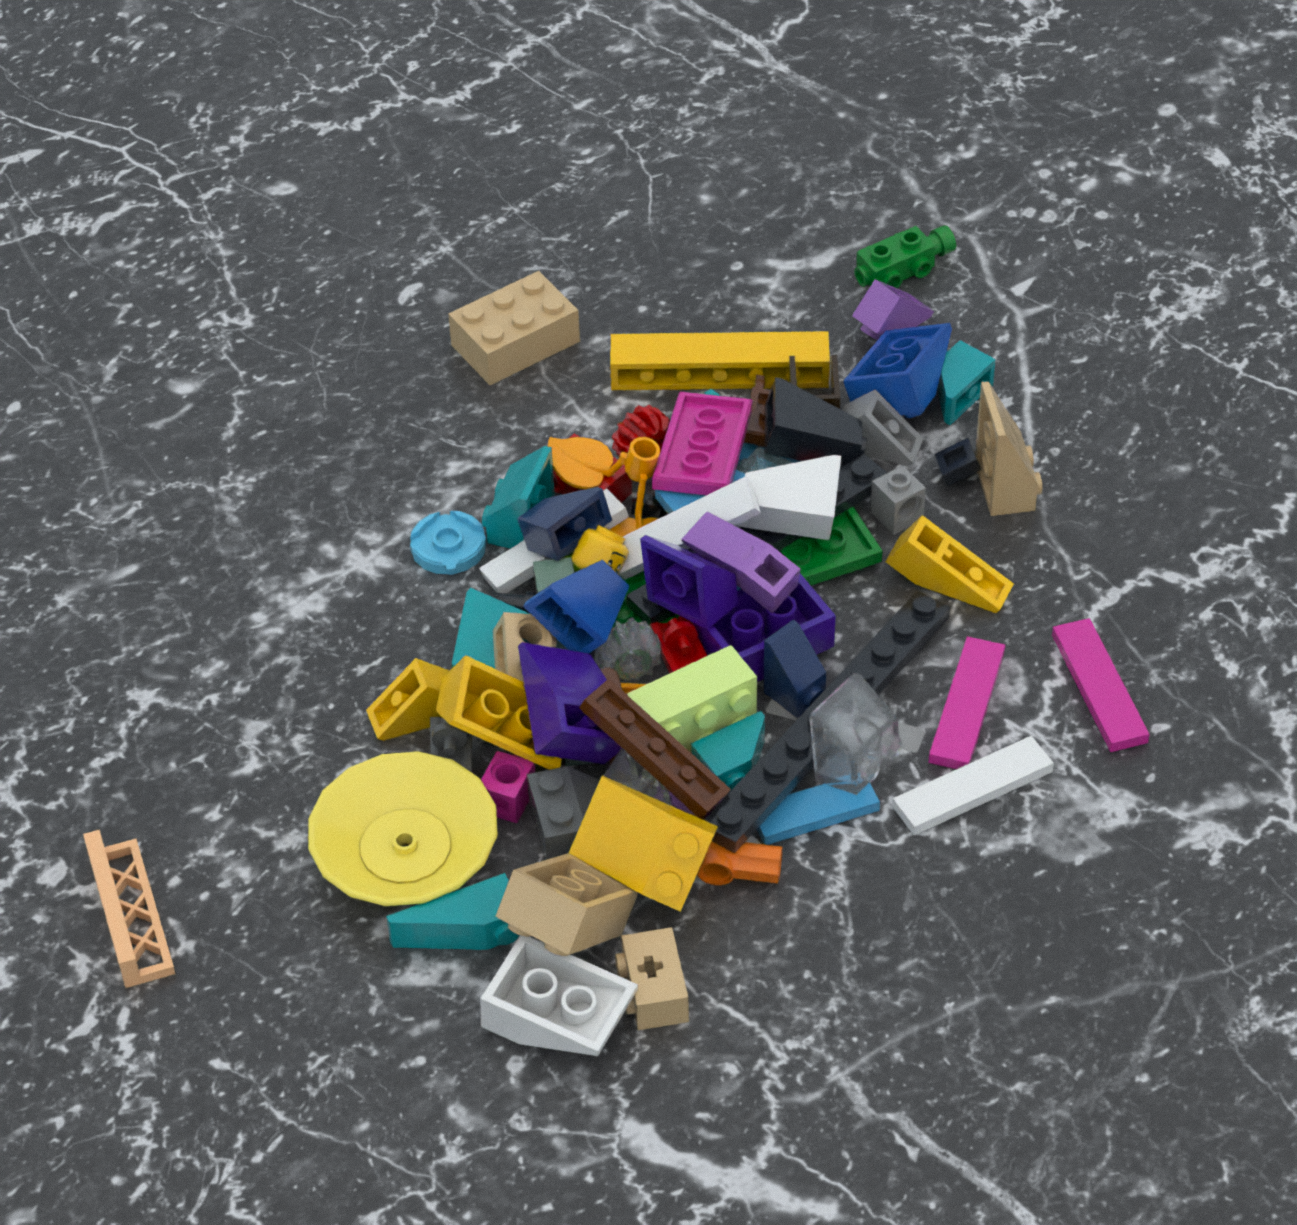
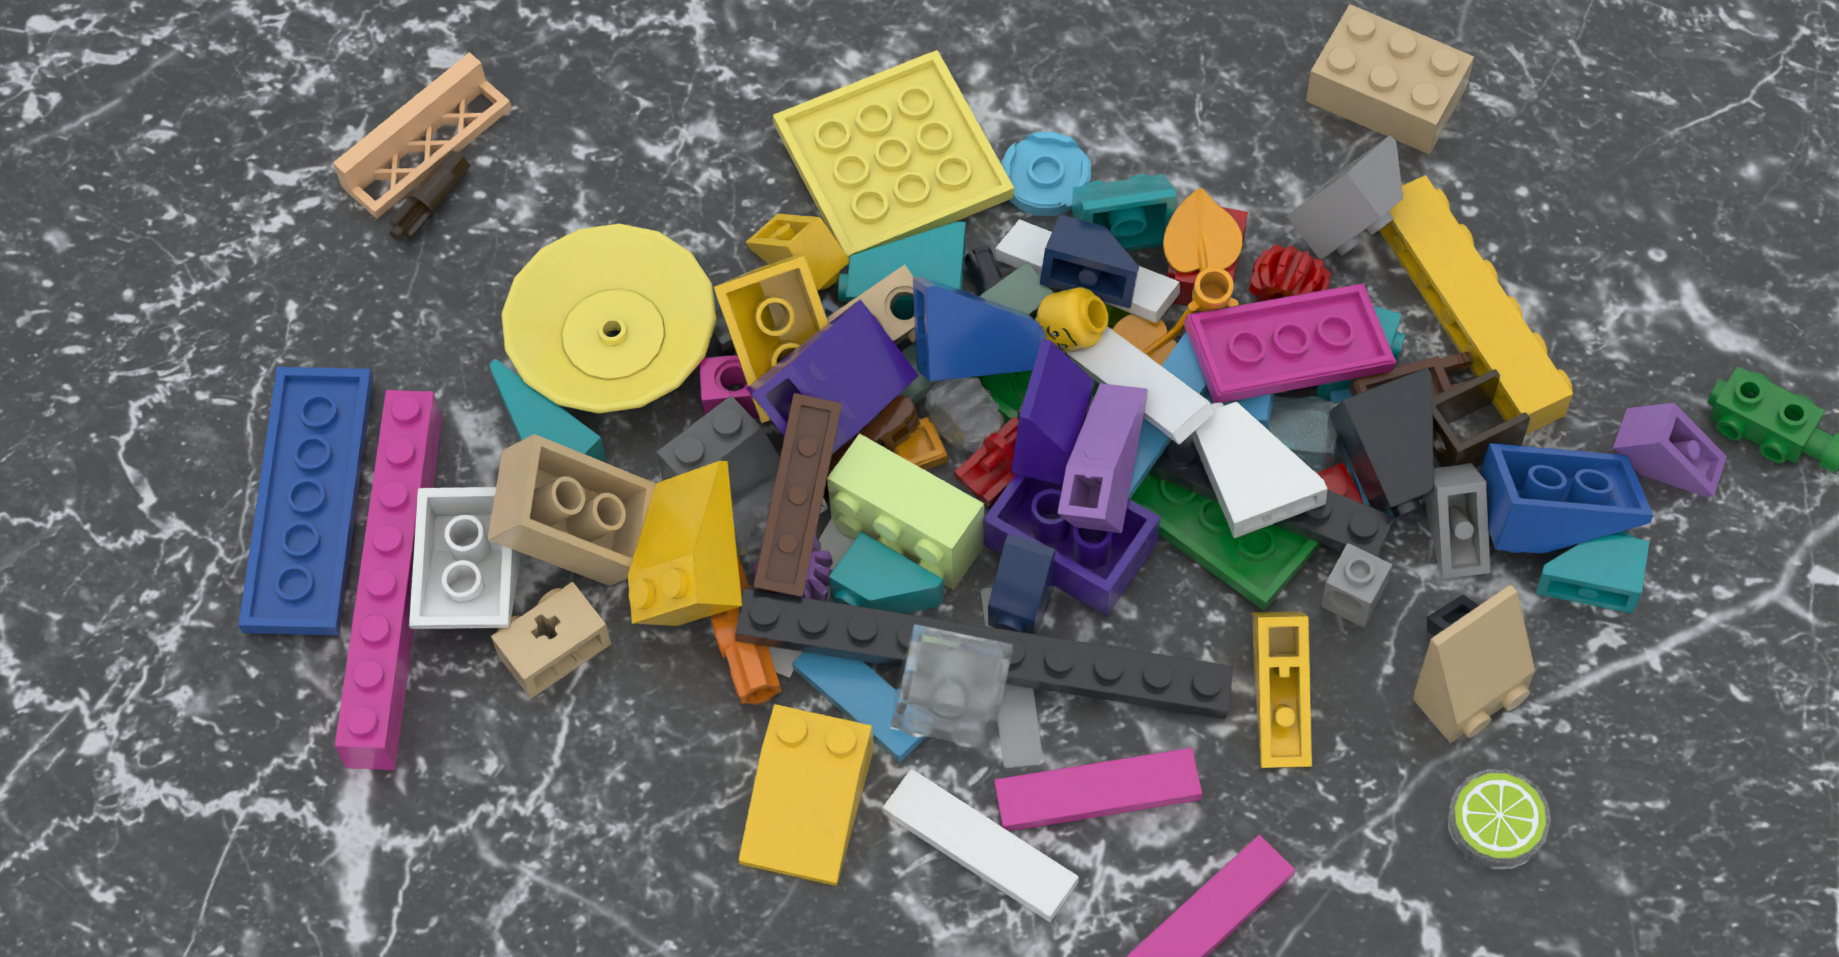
camera: 65 degrees right, 15 degrees up
(190, 928) = (428, 196): none -> dark brown piece
(368, 617) = (893, 155): none -> light yellow plate
(419, 1104) = (306, 501): none -> blue plate
(535, 1066) = (380, 627): none -> dark pink brick
(604, 375) = (1351, 202): none -> light grey slope
(878, 865) = (806, 794): none -> yellow slope
(1106, 504) = (1499, 818): none -> tile

